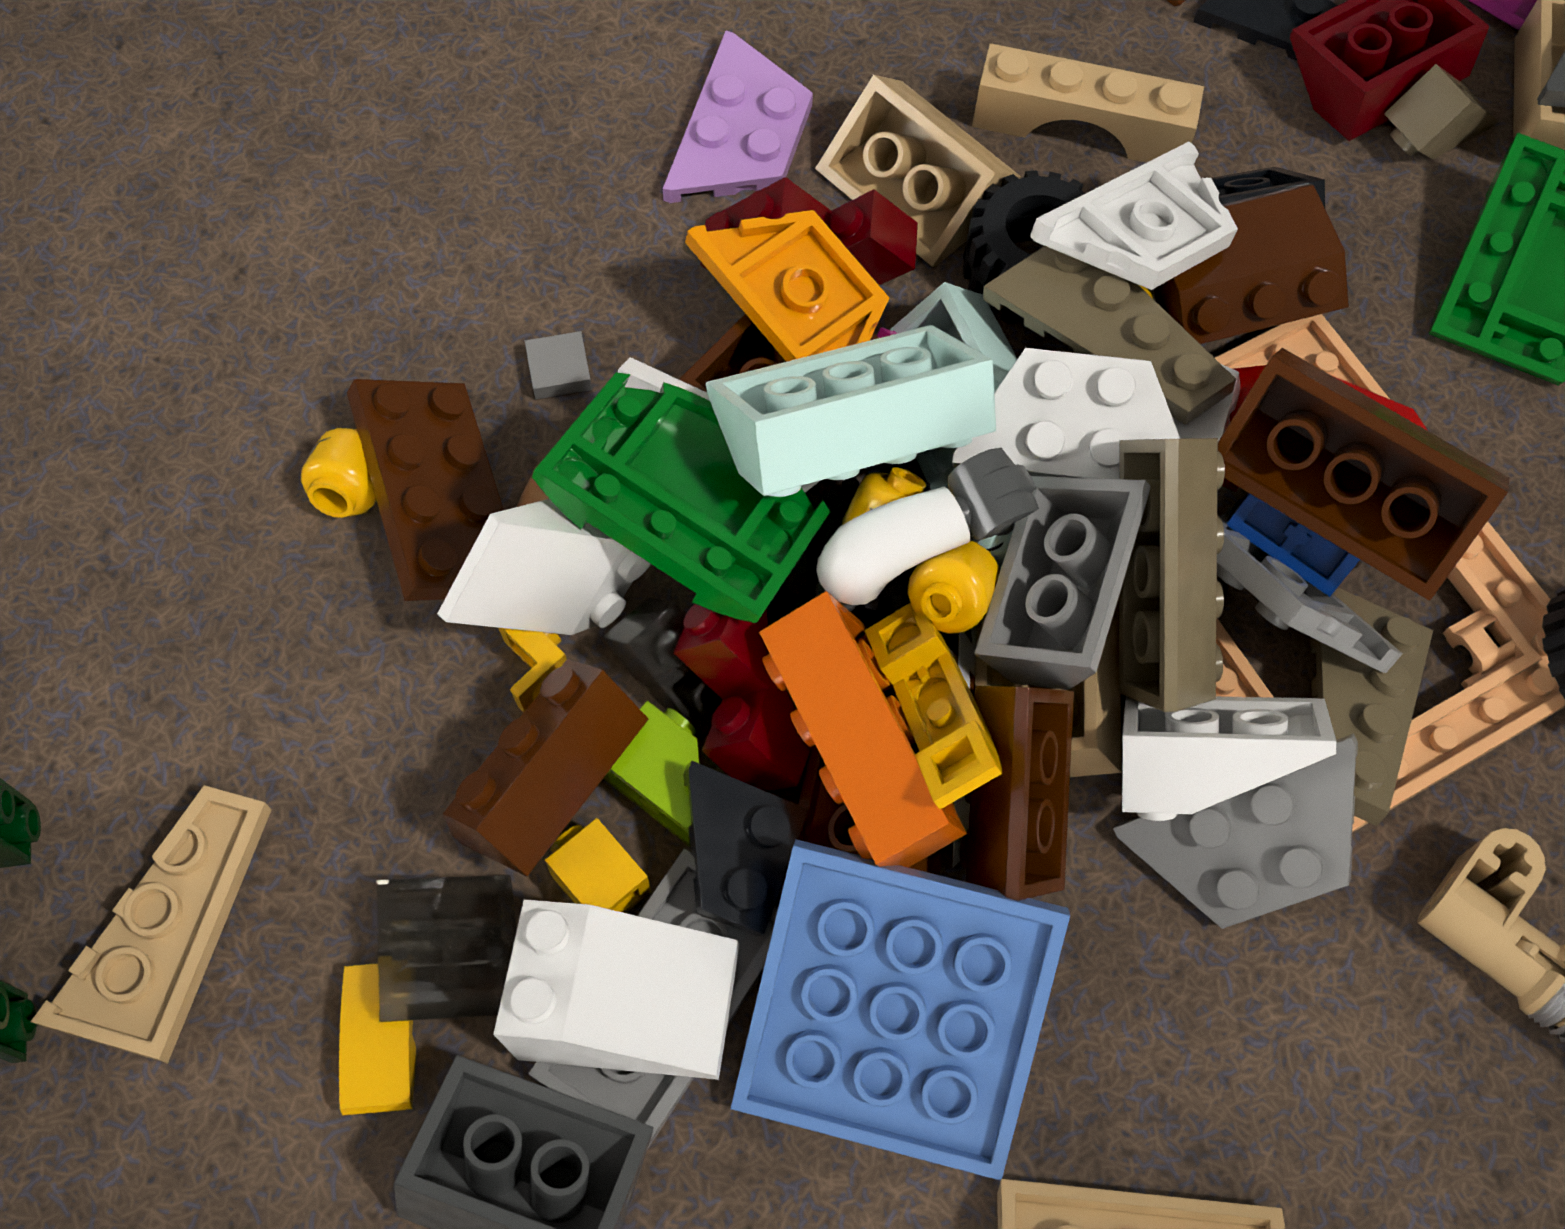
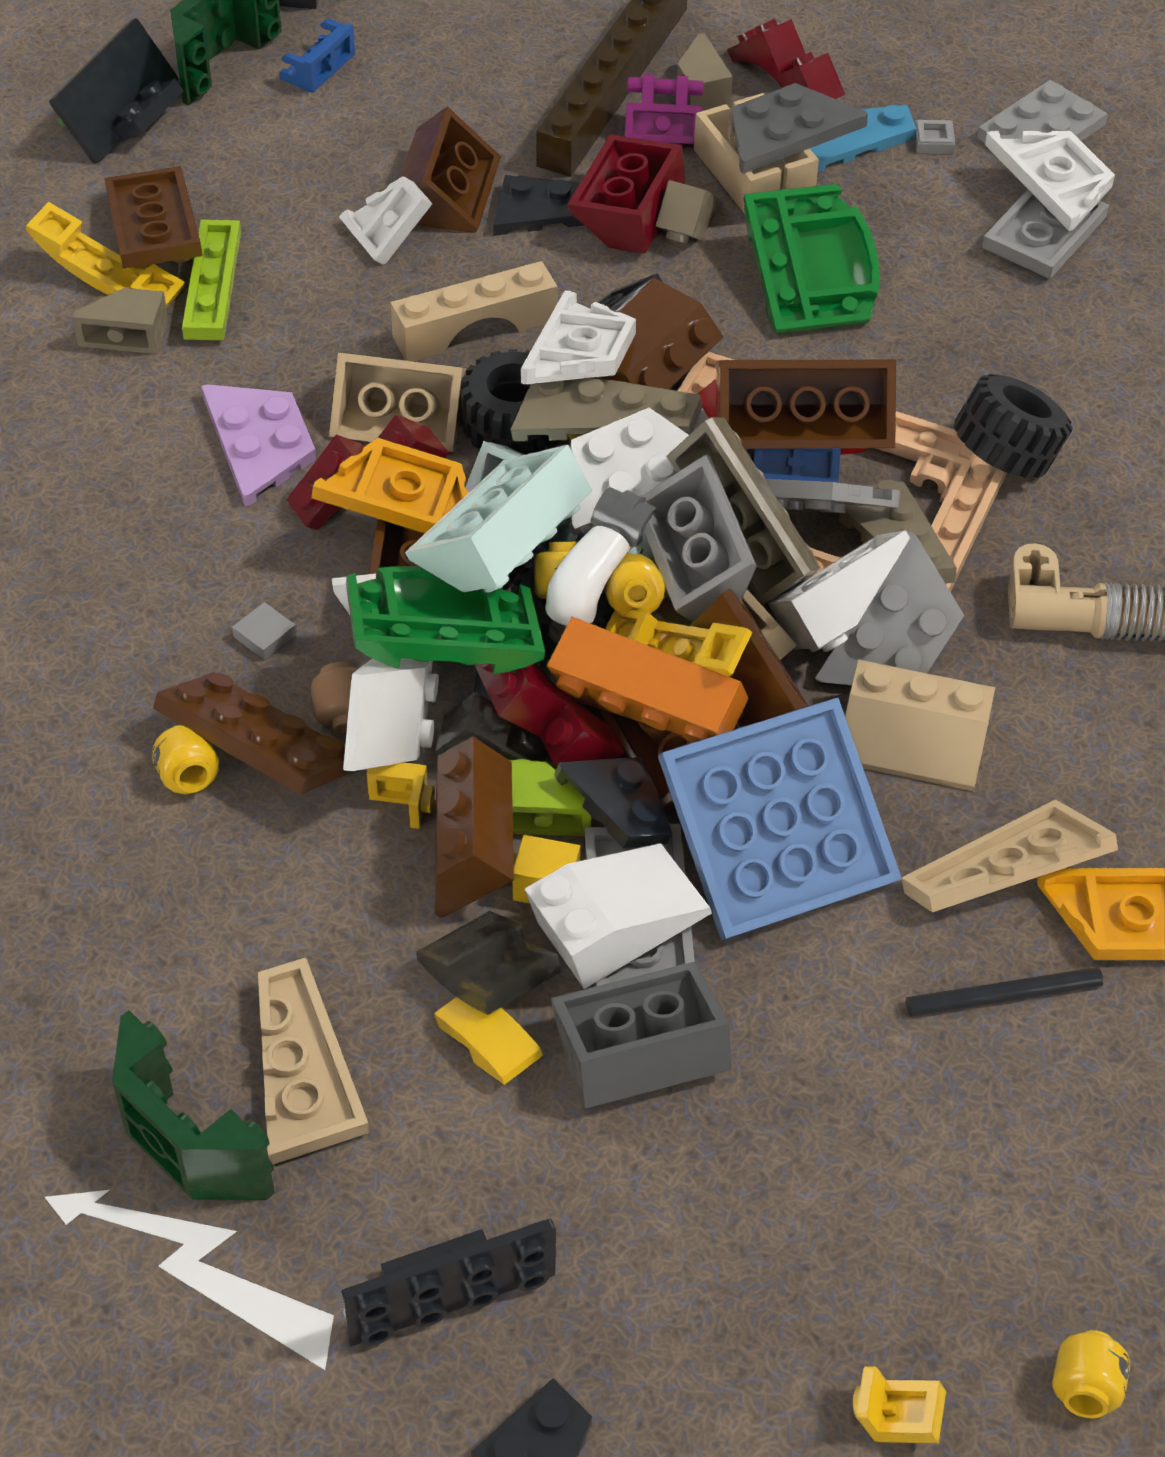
camera: 35 degrees left, 15 degrees down
(1183, 983) = (918, 724): none -> tan slope

